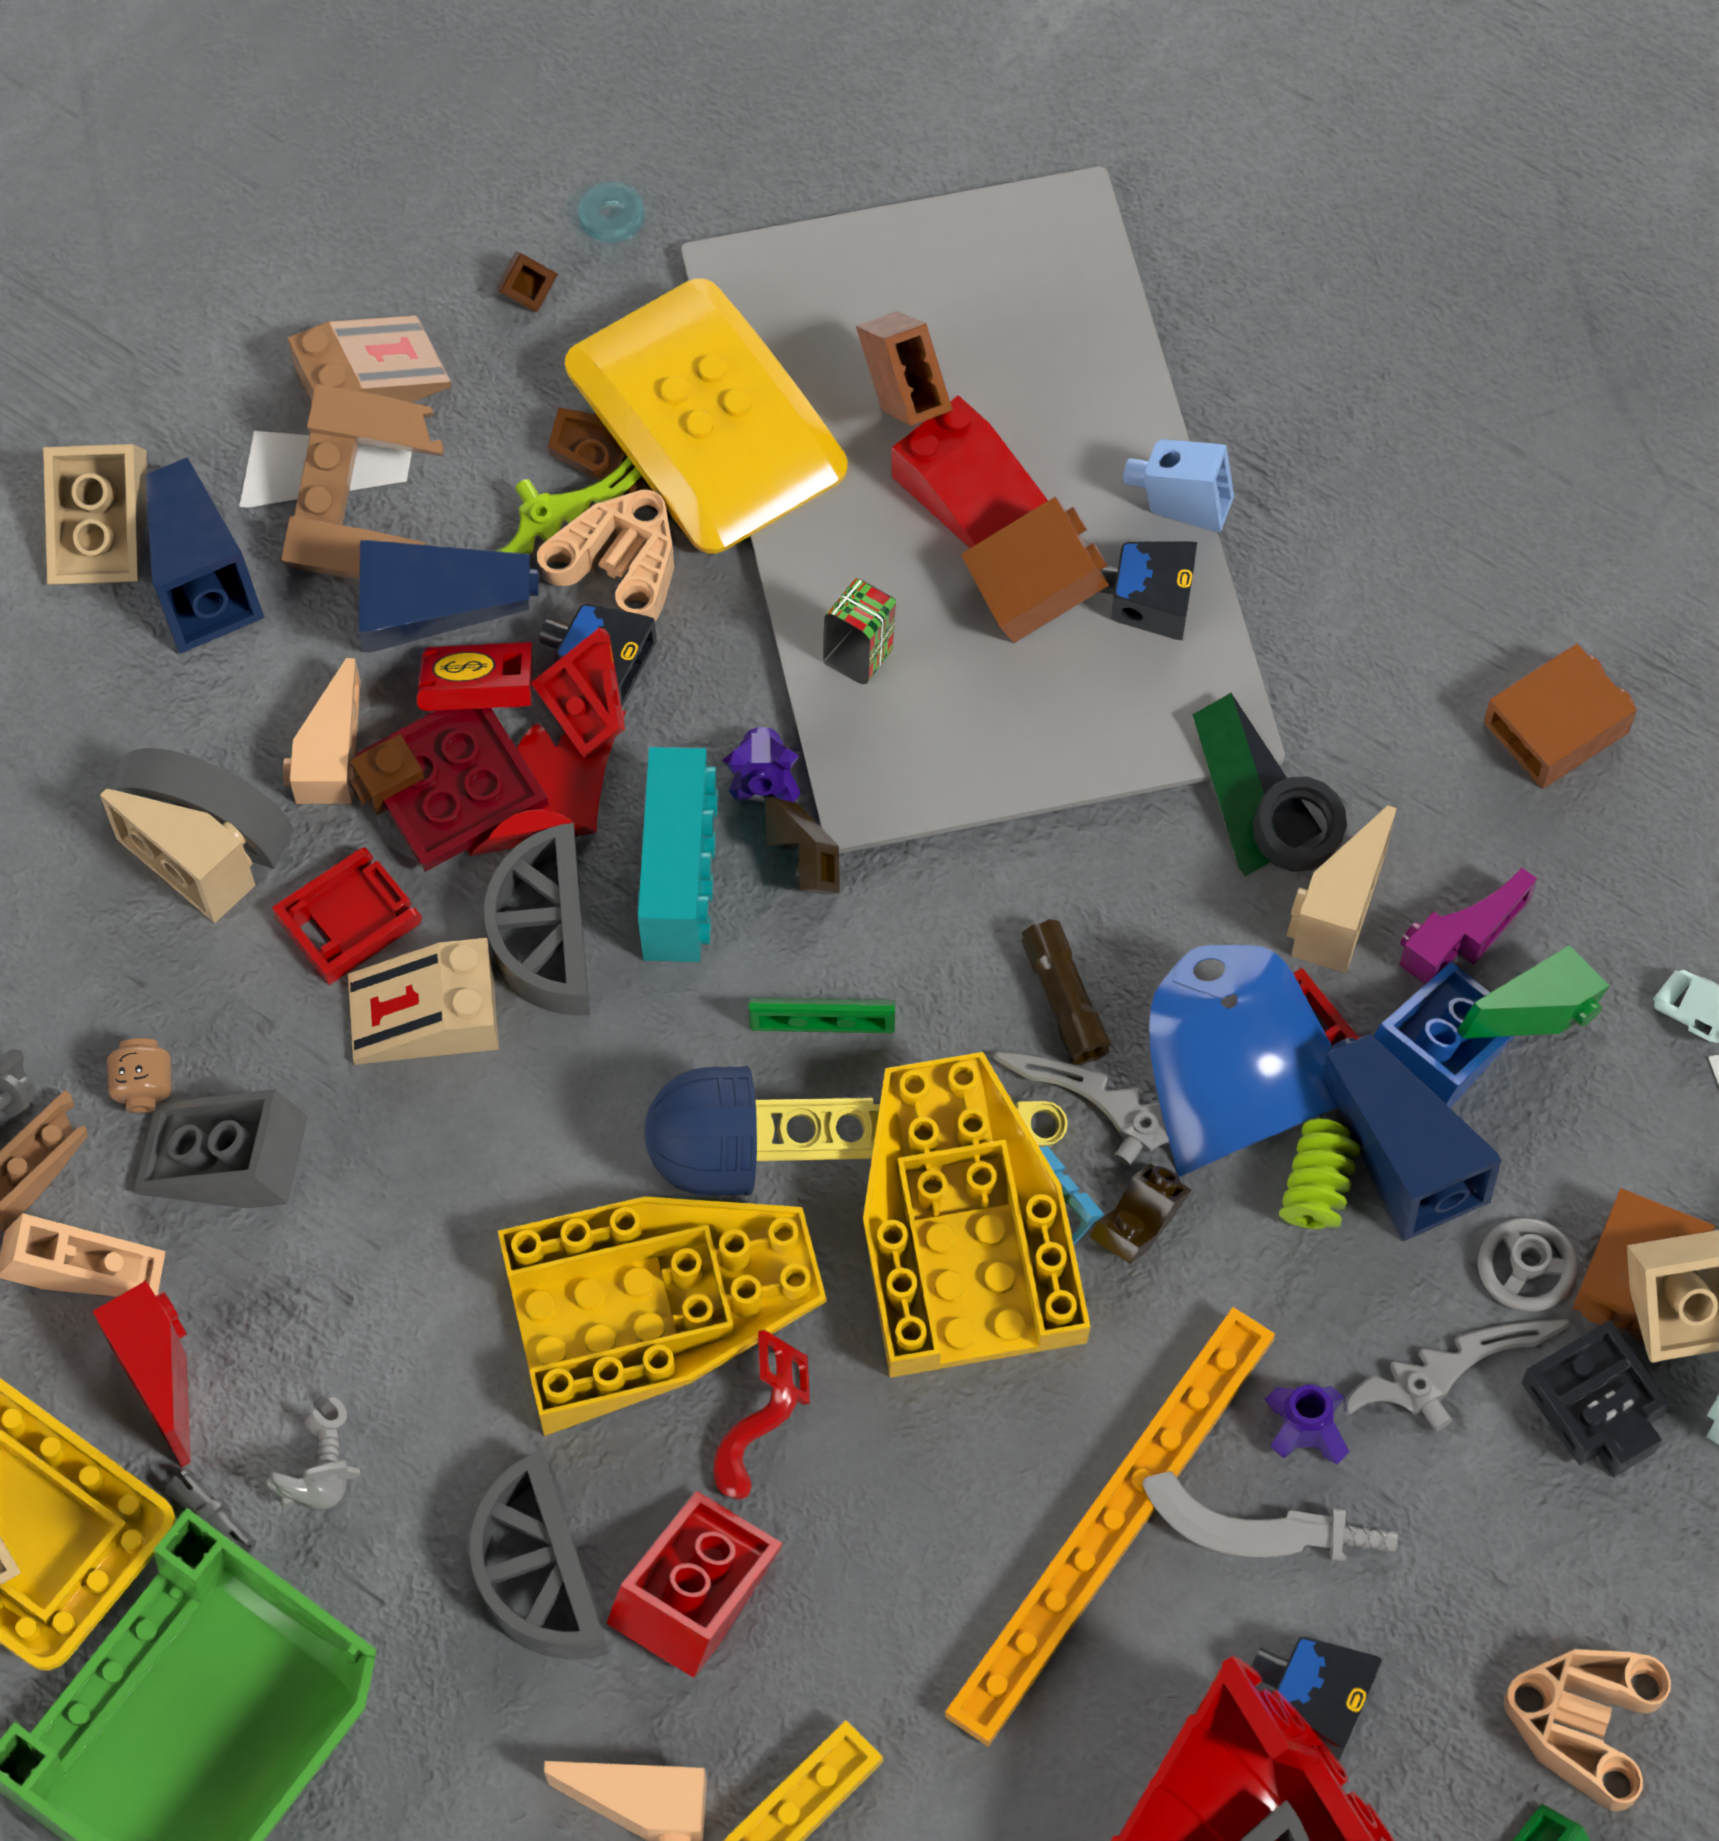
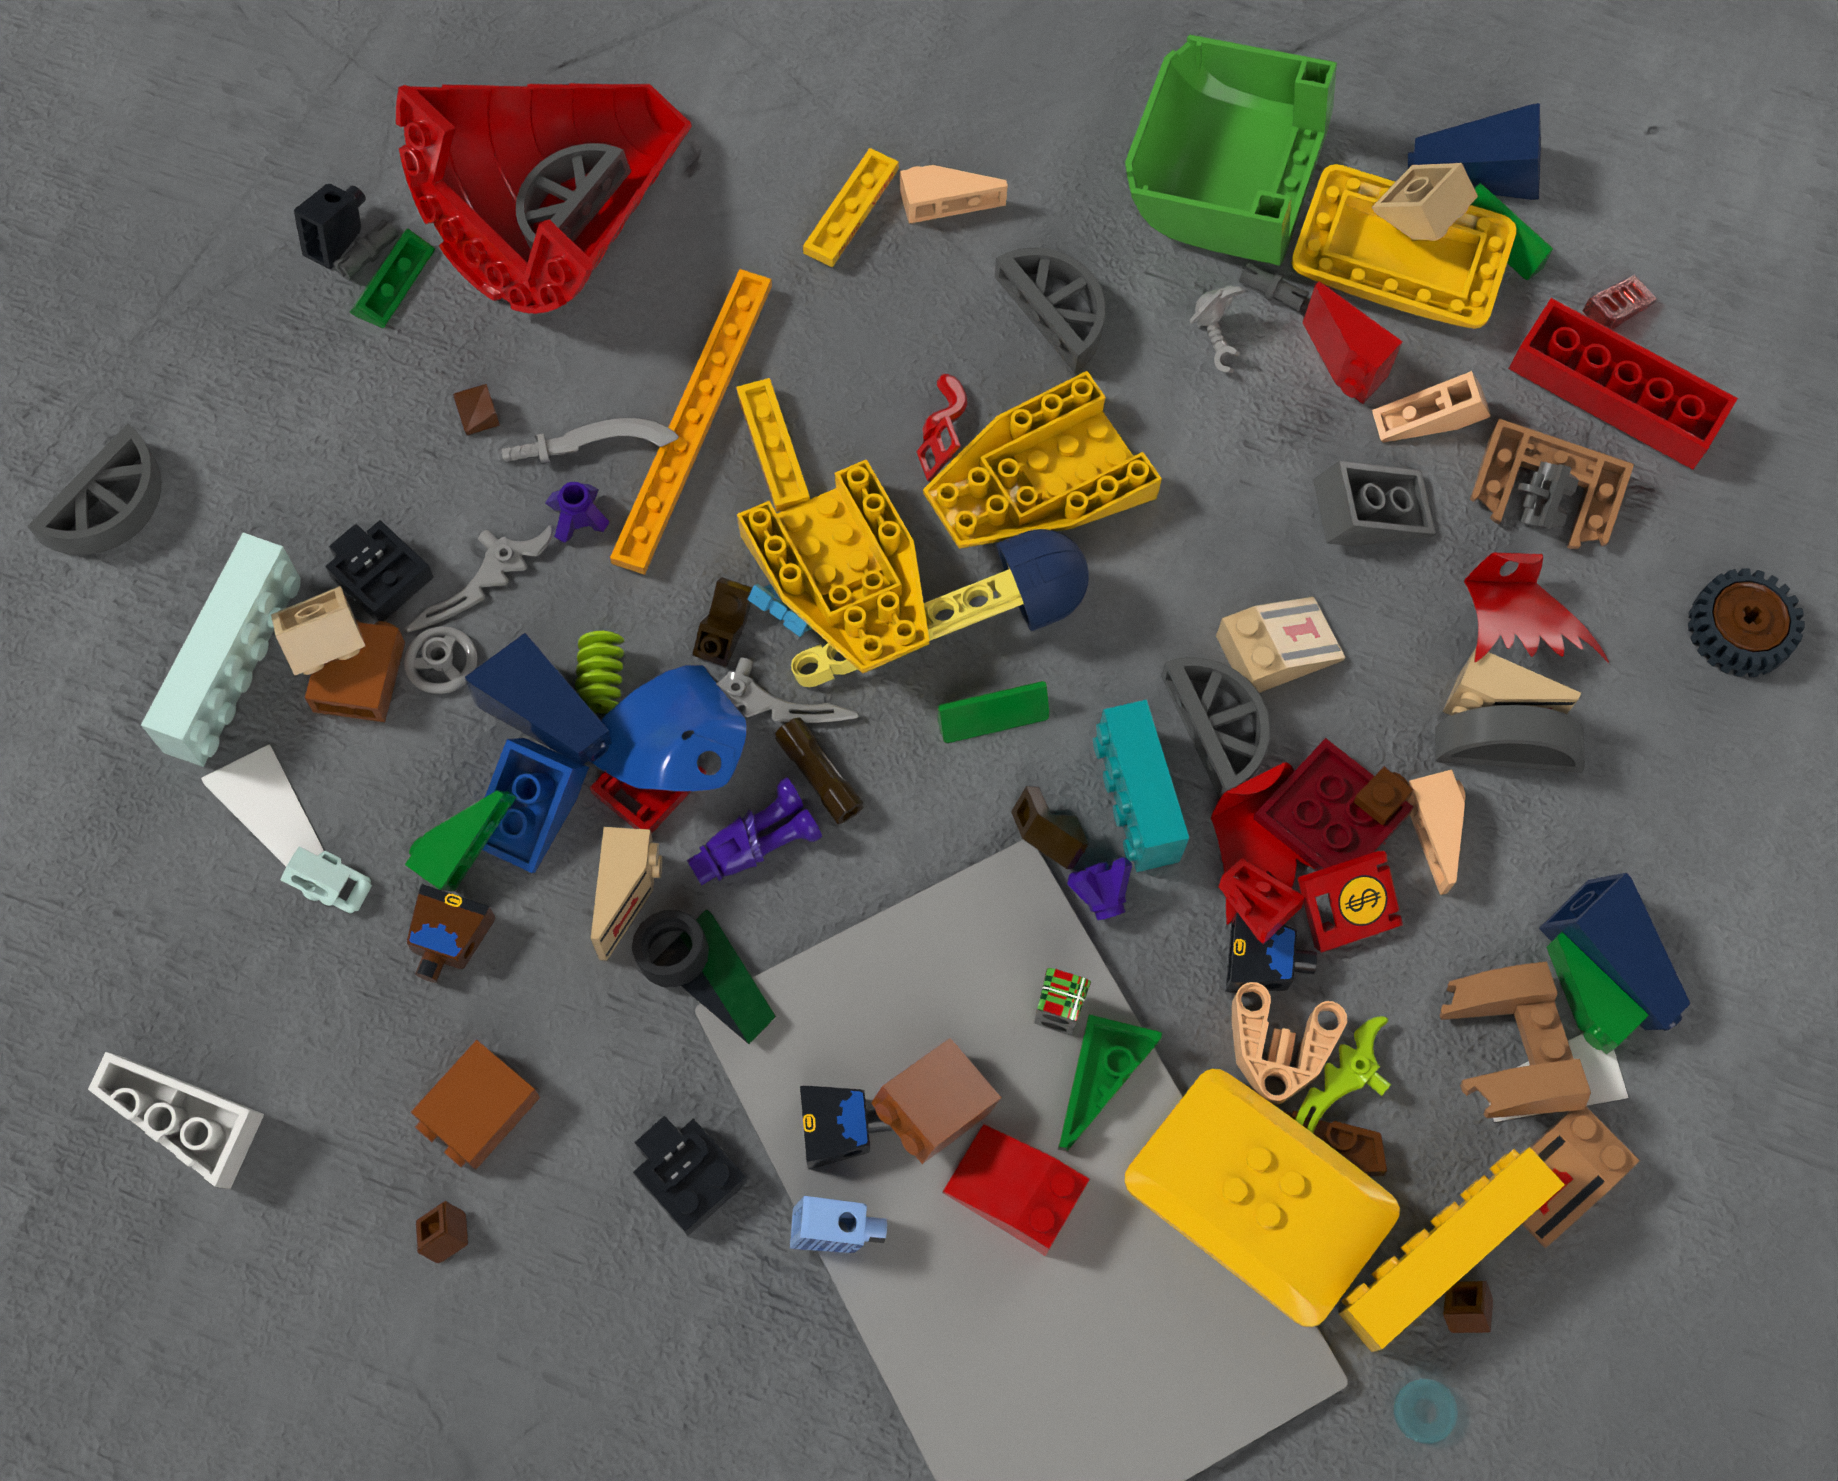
camera: 160 degrees right, 5 degrees up
(94, 513) = (1718, 974): tan slope -> none
(110, 947) = (1520, 607): none -> red piece
(139, 1074) = (1454, 539): medium nougat head -> none
(244, 504) = (1596, 1001): none -> green slope
(352, 910) = (1359, 705): red container -> none
(436, 589) = (1417, 959): dark blue slope -> none
(526, 303) = (1451, 1249): none -> yellow brick
(693, 1583) = (952, 317): red slope -> none
(822, 576) = (1105, 1062): none -> green wing
(904, 368) = (1103, 1252): dark orange brick -> none
(1010, 1453) = (772, 444): none -> yellow plate
(1184, 925) = (738, 843): none -> dark purple piece
(1323, 1685) = (536, 347): torso -> none
(1330, 593) = (686, 1172): none -> black piece
(1423, 1617) = (476, 409): none -> reddish brown slope
(1464, 933) = (544, 879): magenta slope -> none
(1566, 909) = (446, 930): none -> reddish brown torso
(1572, 1754) = (368, 369): light nougat connector -> none
(1617, 604) = (441, 1232): none -> reddish brown slope

